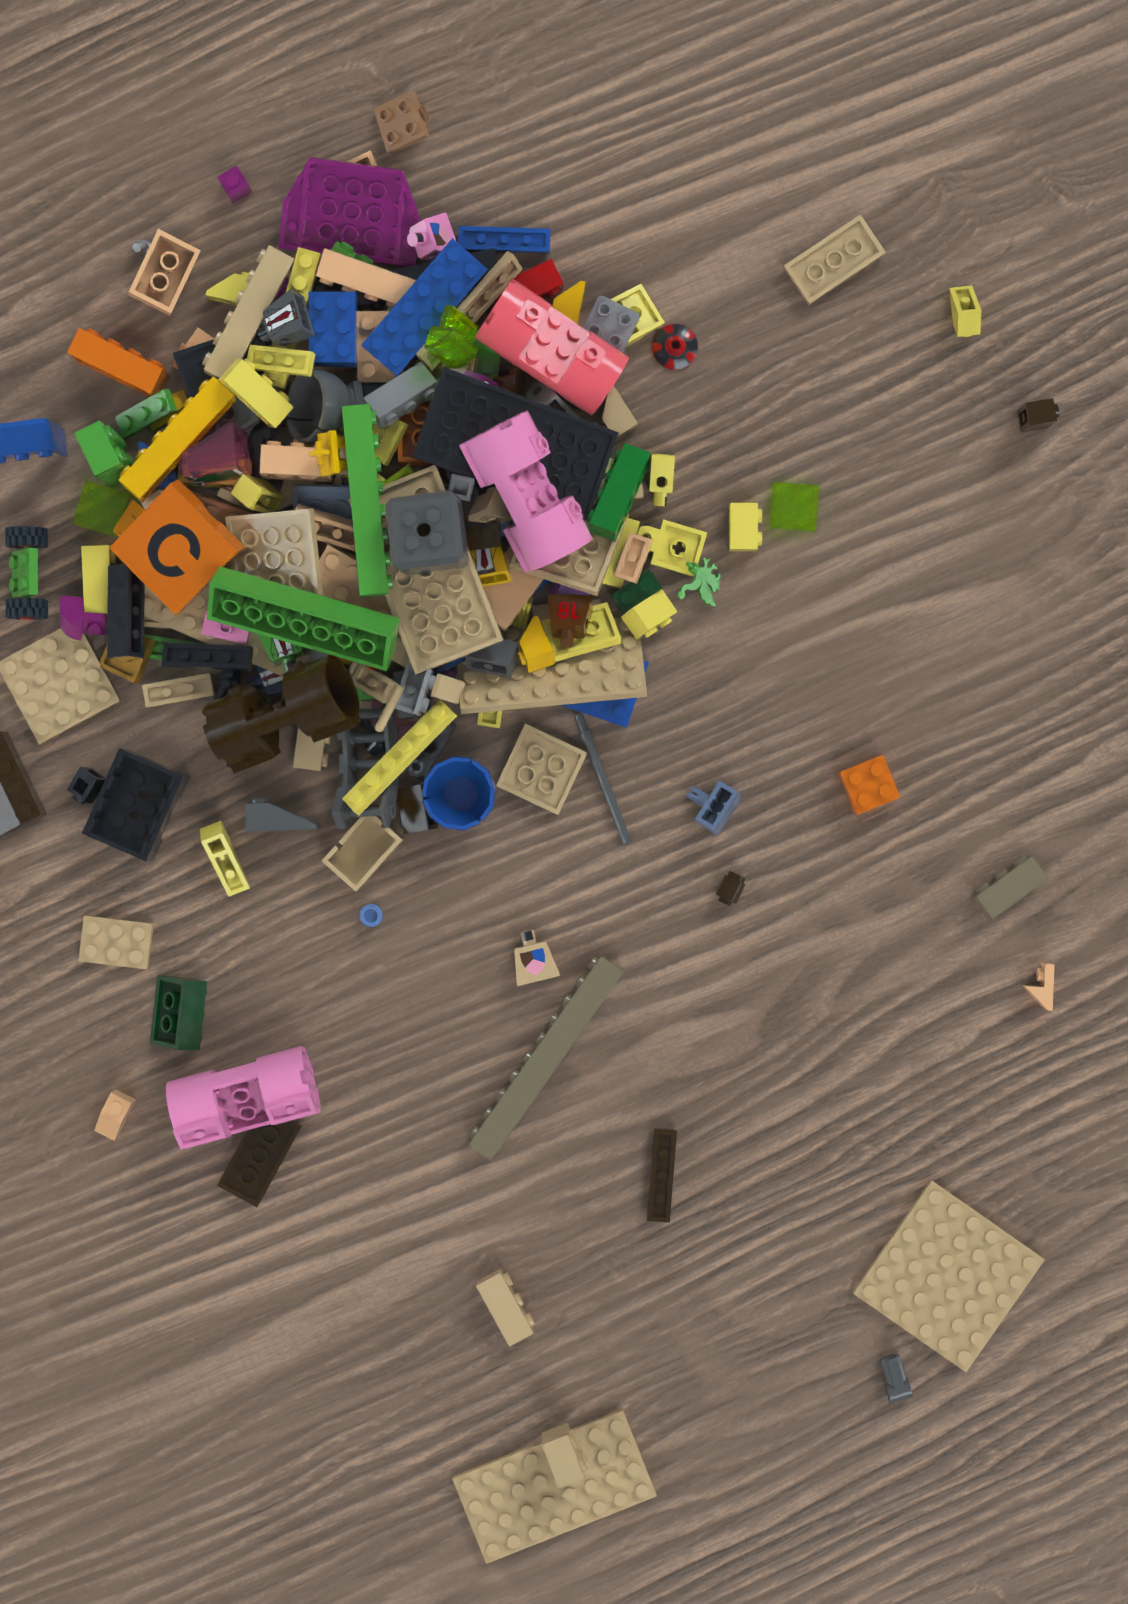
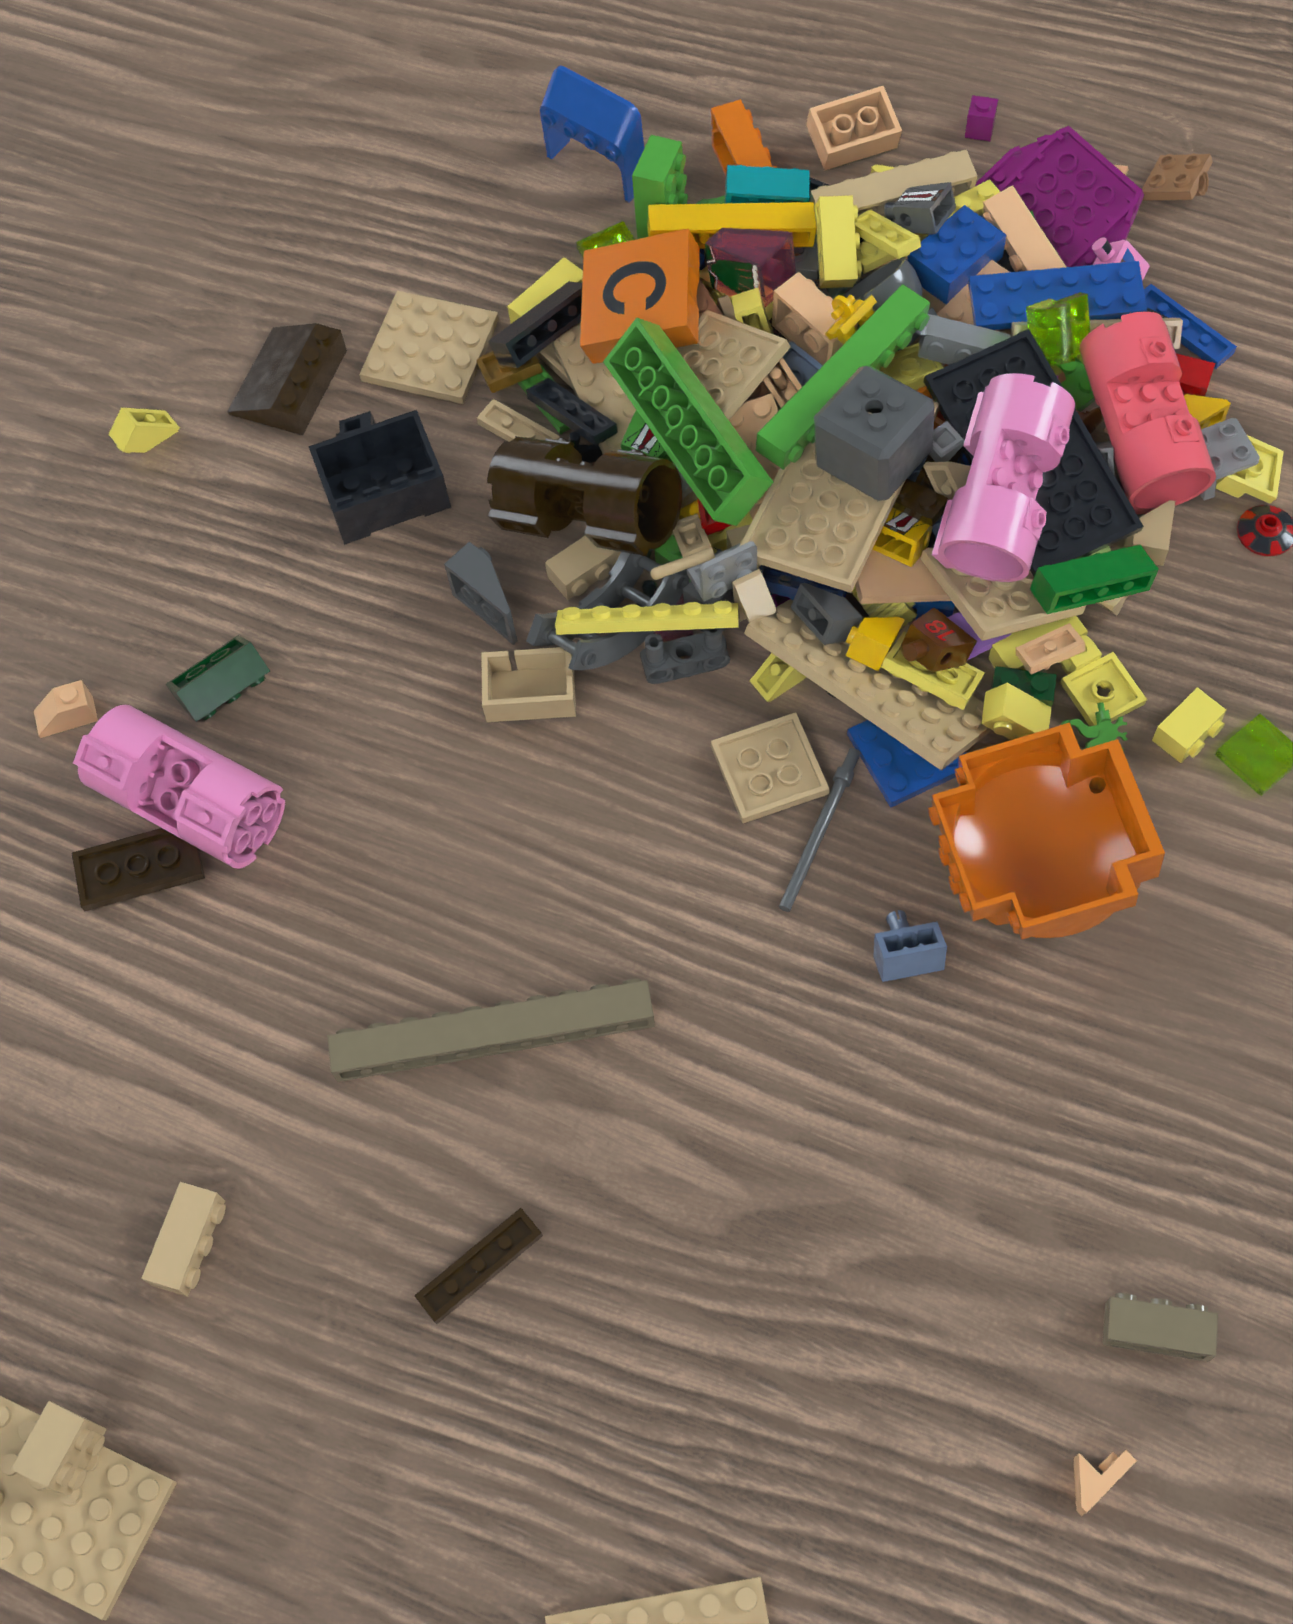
camera: 55 degrees right, 25 degrees down
(25, 572) = (468, 261): plate -> none
(75, 621) = (497, 304): magenta brick -> none
(116, 942) = (236, 577): tan plate -> none
(171, 390) = (766, 185): none -> teal brick
(223, 858) = (402, 588): light yellow slope -> none
(224, 631) = (611, 400): bright pink plate -> none
(371, 915) = (474, 752): medium blue plate -> none
(412, 811) = (616, 695): dark brown brick -> none
(458, 793) = (668, 702): blue plate -> none
(534, 960) = (577, 929): tan torso -> none
(660, 466) = (1149, 611): light yellow torso -> none
(730, 888) = (845, 1043): dark brown brick -> none
(735, 684) = (1046, 834): none -> orange windscreen
(868, 784) = (1094, 1074): orange brick -> none

